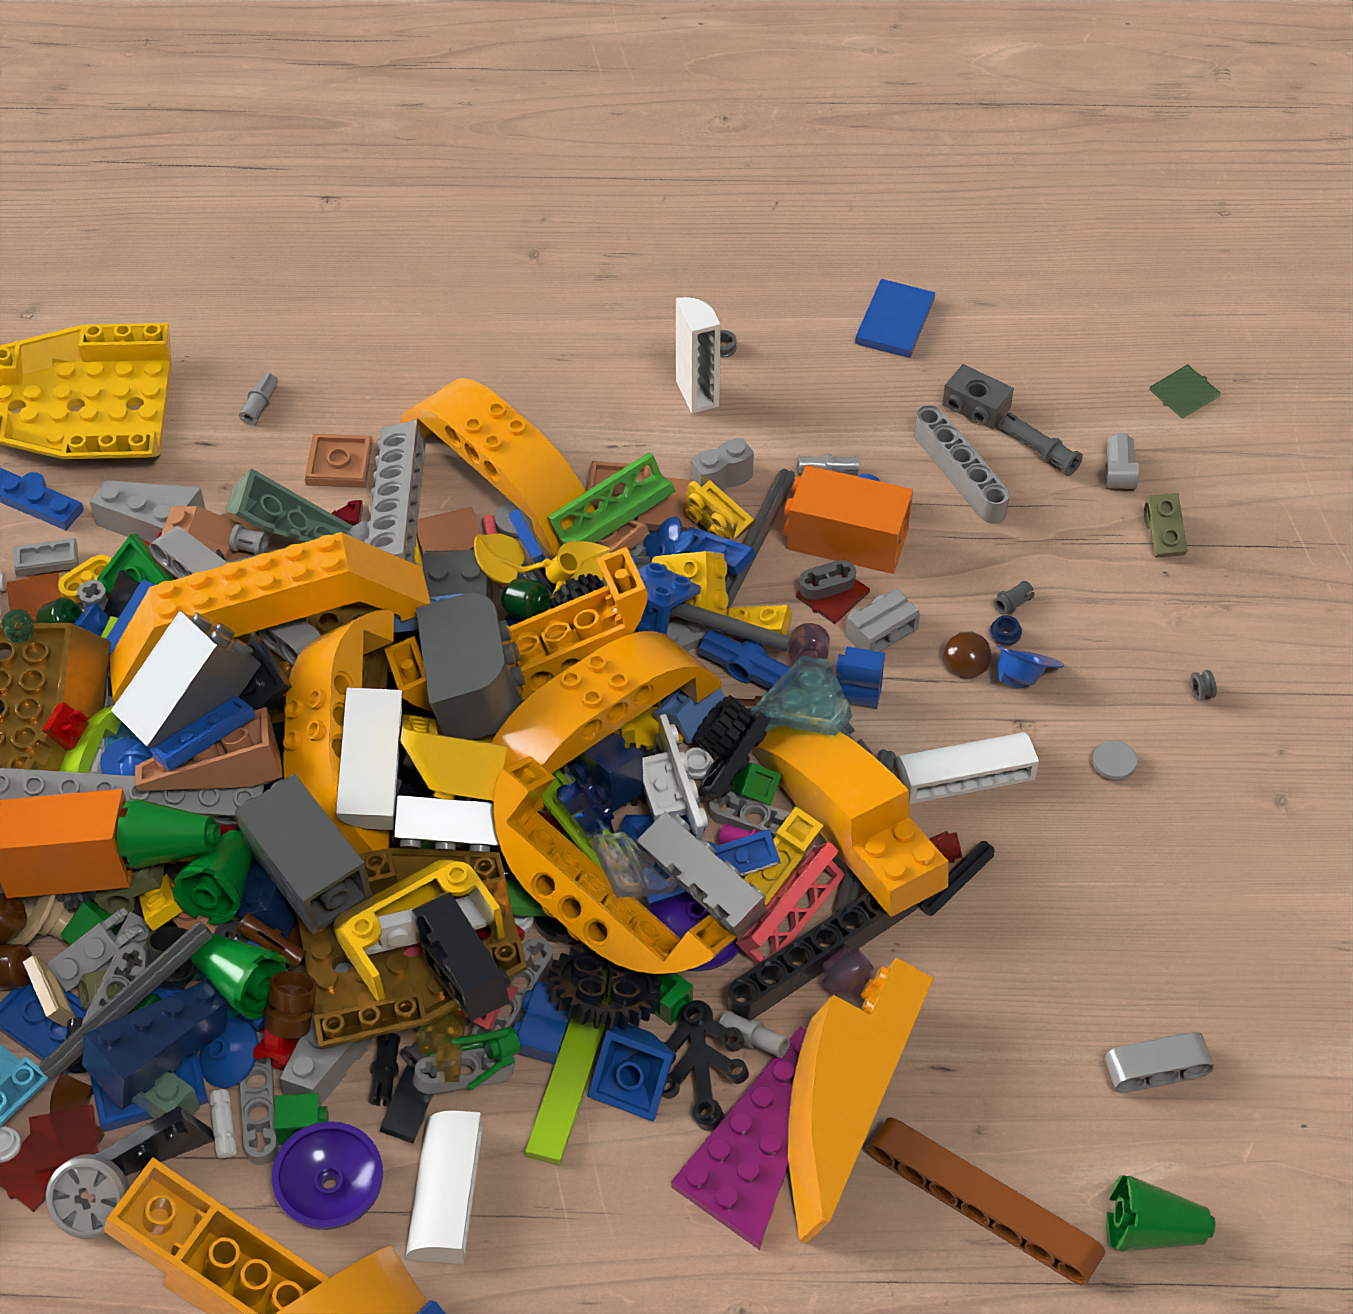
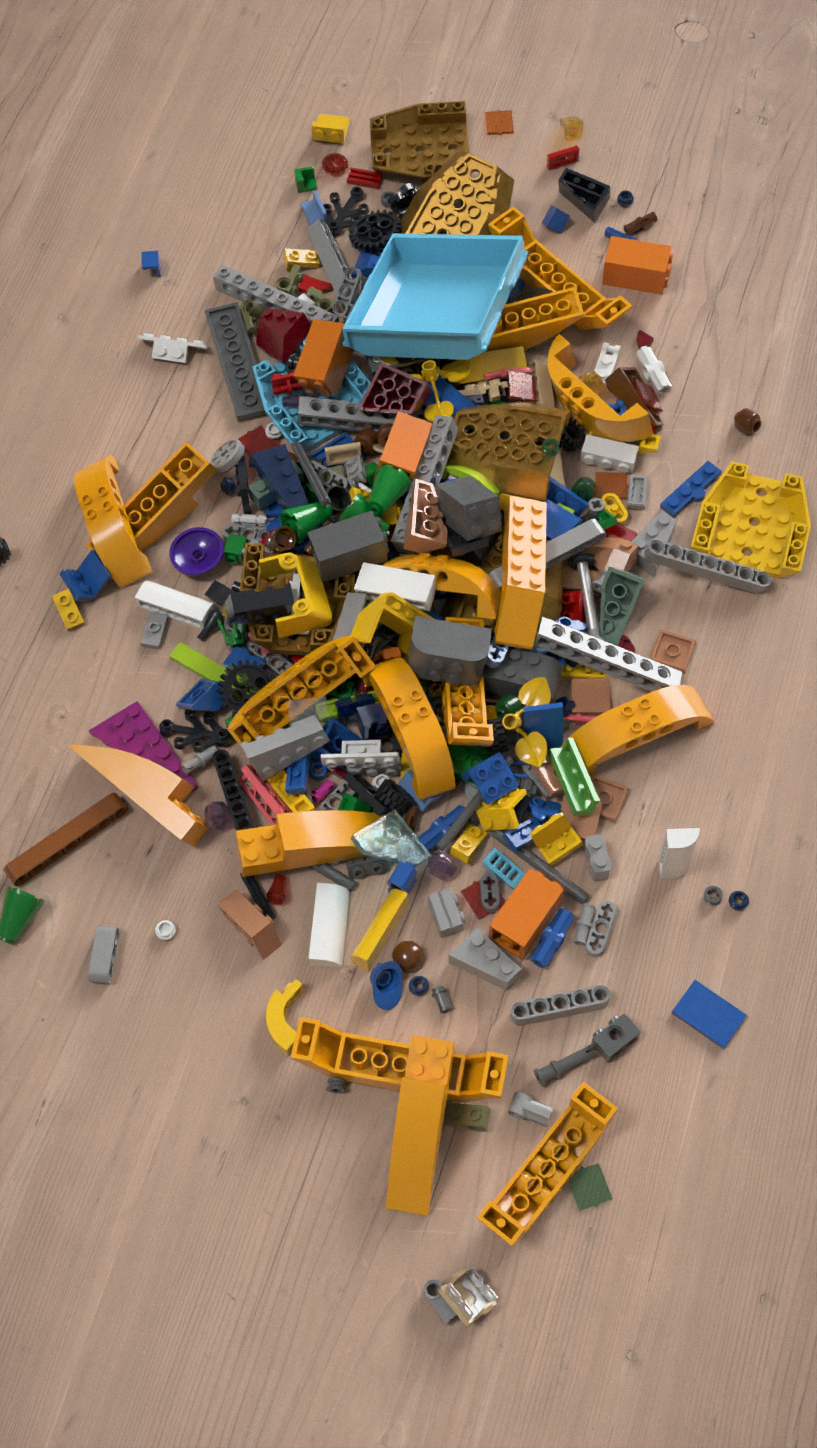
camera: 110 degrees right, 10 degrees up
(66, 726) = (483, 466): red tile -> none
(186, 429) = (699, 569): none -> light grey beam
(202, 733) = (437, 512): blue tile -> none
(258, 399) = (734, 616): light grey axle -> none
(465, 1101) = (211, 623): none -> black cone
(510, 1208) = (154, 630): none -> light grey plate
(724, 313) = (738, 895): none -> dark blue plate
(775, 594) = (501, 858): none -> medium azure slope
(814, 441) = (599, 914): none -> light grey beam
(932, 558) = (485, 959): none -> light grey wedge
(946, 690) = (380, 929): none -> yellow brick
(1011, 863) = (250, 922): none -> nougat wedge
(1074, 989) = (165, 930): none -> white plate
(1114, 760) = (303, 1008): light grey piece -> none
(1138, 787) = (279, 1030): none -> yellow arch
(1139, 588) = (384, 1062): none -> light orange slope
(1196, 418) = (549, 1166): none -> light orange slope
(1210, 541) = (419, 1124): none -> light orange slope

